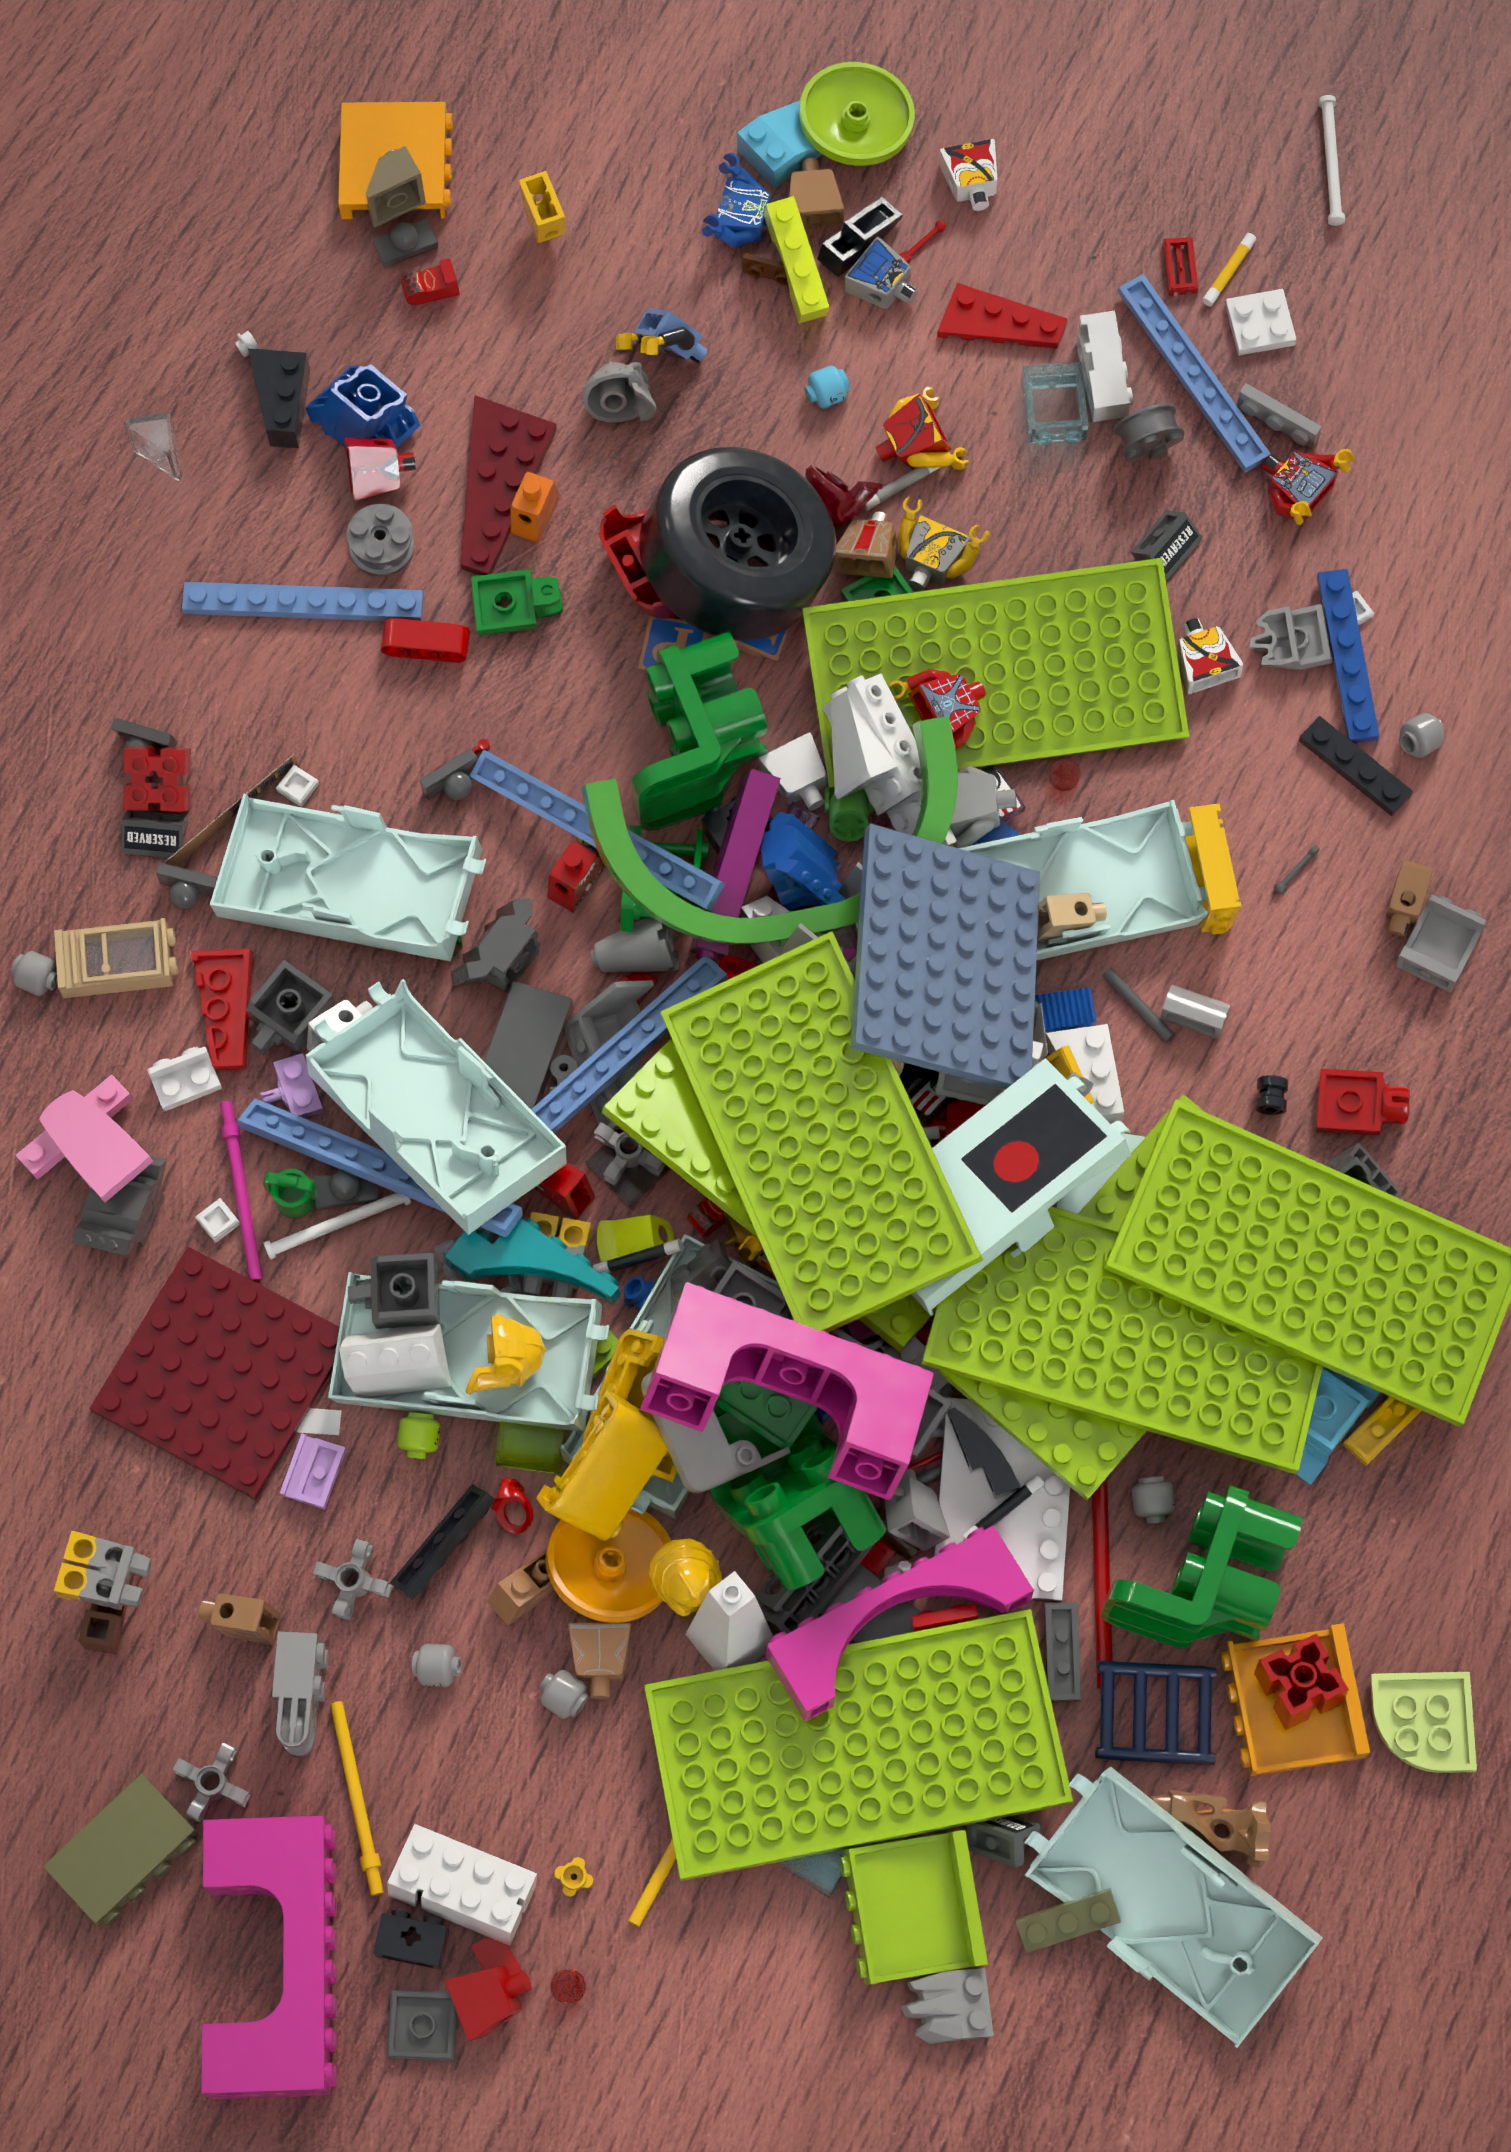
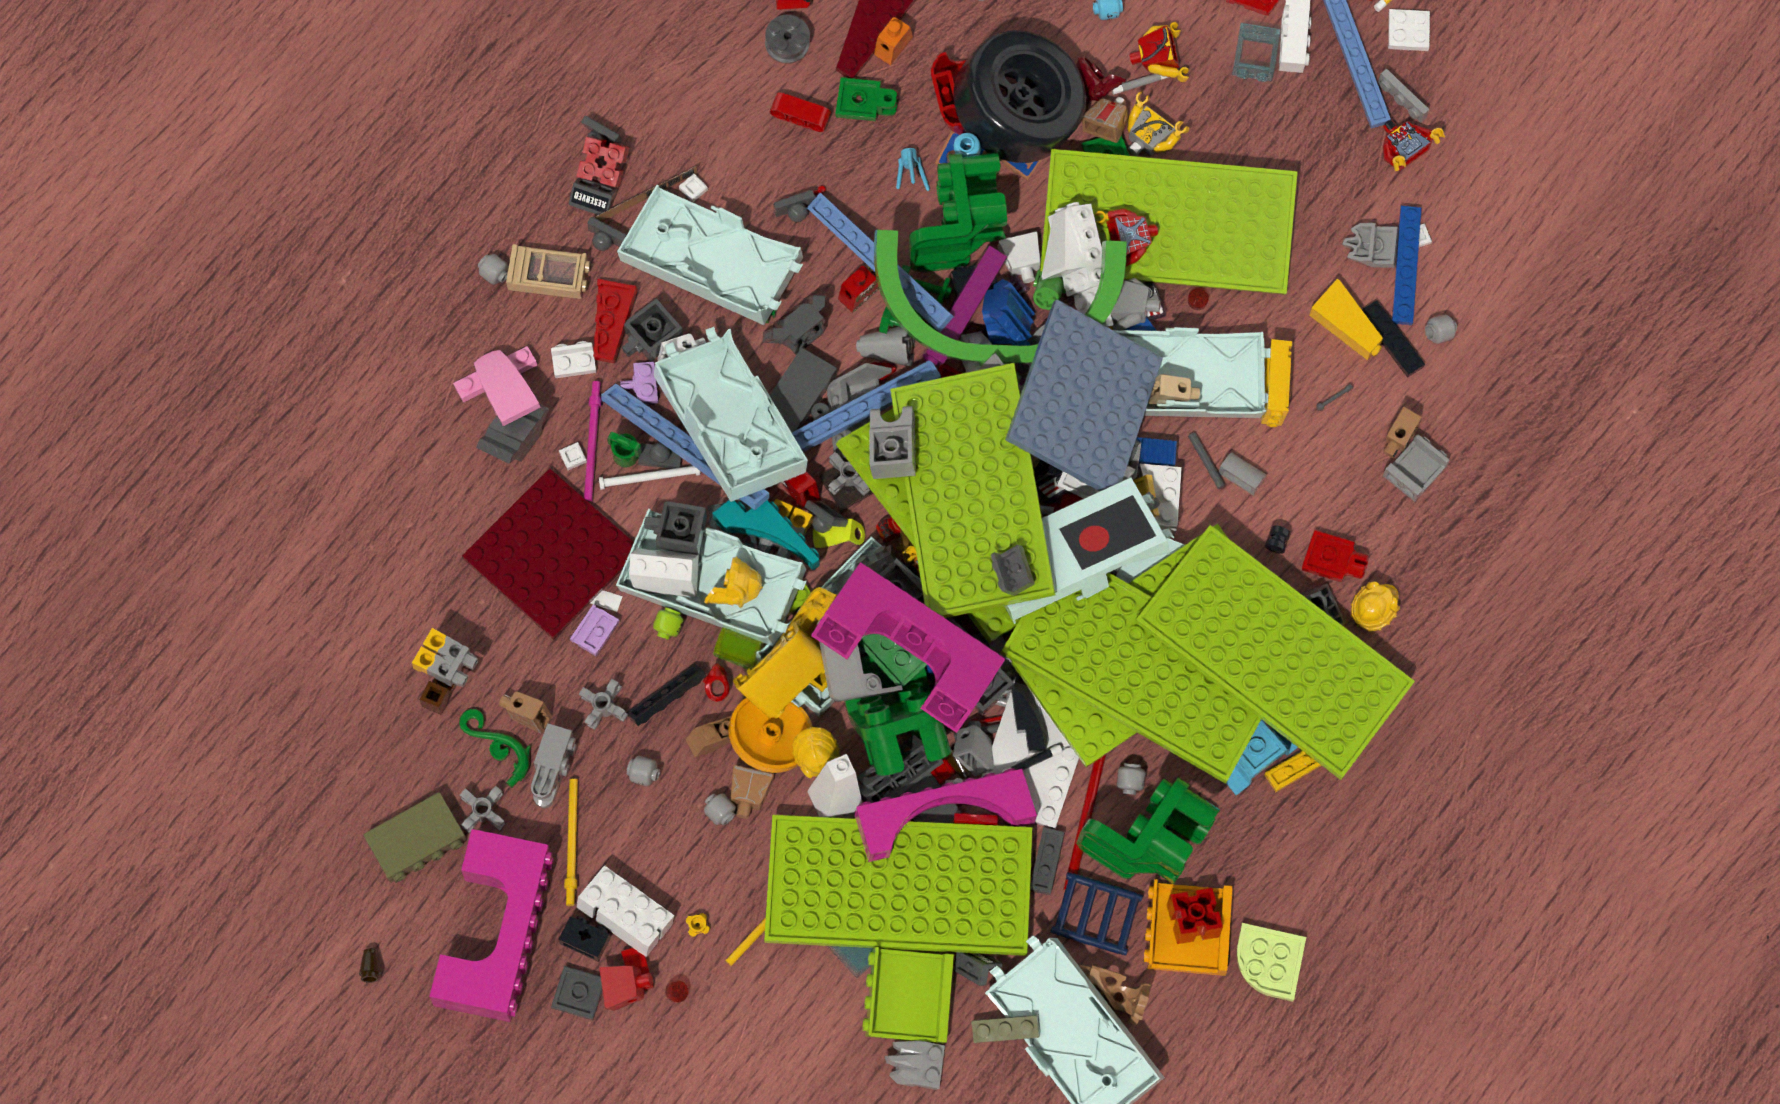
camera: 10 degrees right, 0 degrees up
(100, 2065) = (369, 966): none -> dark brown cone
(212, 1668) = (500, 739): none -> green plant
(301, 601) = (726, 67): medium blue plate -> none
(601, 673) = (909, 160): none -> medium azure plant
(609, 1220) = (825, 516): none -> dark grey tile
(637, 1291) = (831, 566): blue plate -> none
(639, 1257) = (839, 544): black bar -> none
(678, 624) = (969, 142): none -> medium azure head
(686, 1094) = (892, 445): none -> light grey brick
(912, 1239) = (1012, 570): none -> flat silver bracket
(1149, 432) = (1313, 86): flat silver wheel -> none
(1171, 539) = (1308, 162): dark grey panel -> none
(1206, 657) = (1311, 244): torso -> none
(1285, 755) = (1345, 319): none -> yellow slope
(1437, 1158) = (1375, 606): none -> yellow head

